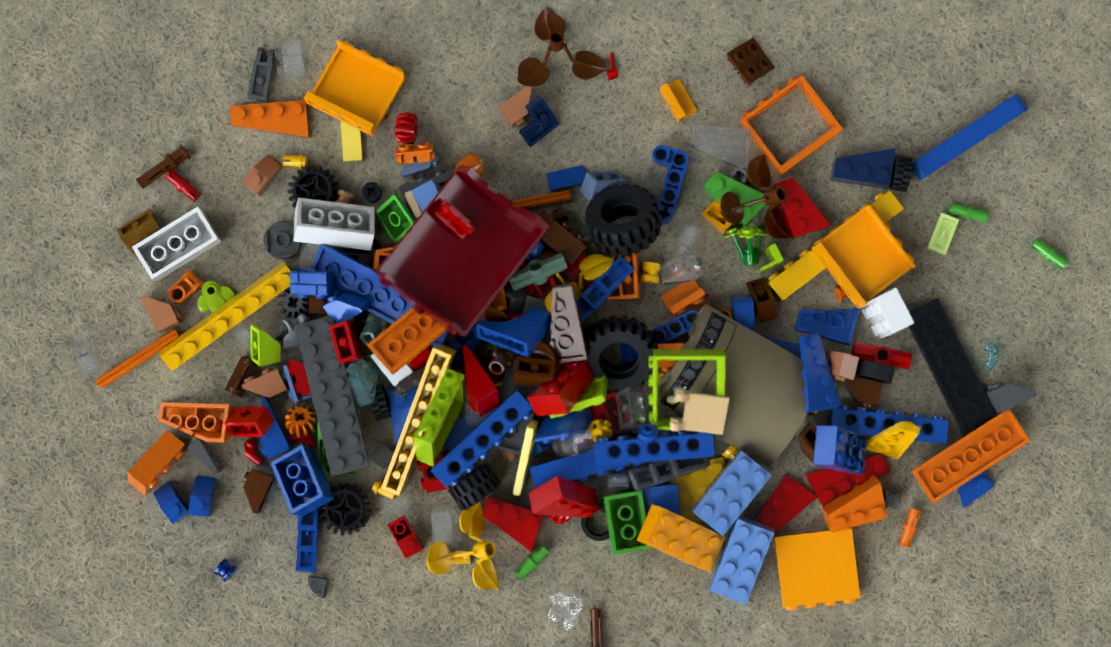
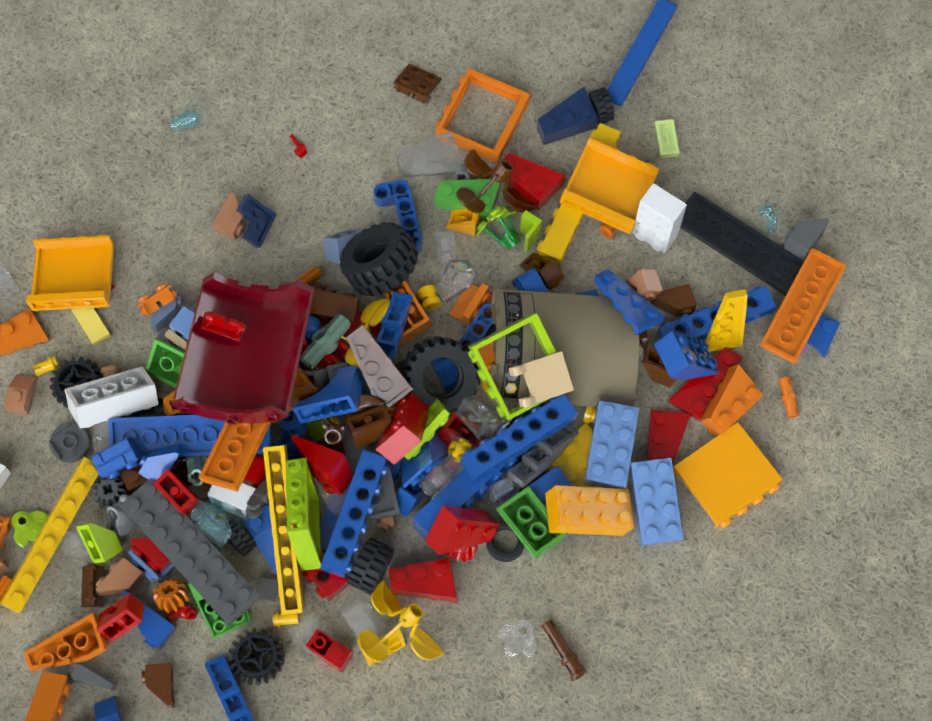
camera: 30 degrees left, 15 degrees down
(250, 451) = (136, 652): red arm -> none
(302, 480) = (200, 648): blue brick -> none
(374, 194) = (136, 360): black wheel -> none
(406, 128) = (136, 283): red gear -> none
(525, 457) = (404, 513): light yellow tile -> none
(531, 561) = (462, 611): bright green pin -> none
(552, 28) = (222, 139): reddish brown plant -> none
(566, 178) = (307, 258): blue slope -> none
(648, 432) = (505, 422): blue plate -> none
(678, 100) = (371, 144): light orange panel -> none
(832, 325) = (620, 259): blue wing -> none
(875, 371) = (677, 276): black tyre -> none
(891, 498) = (759, 379): dark grey wheel -> none
(893, 357) = (686, 261): red piece -> none
(968, 212) = (678, 110): bright green pin -> none
(1049, 253) = (767, 109): bright green pin -> none

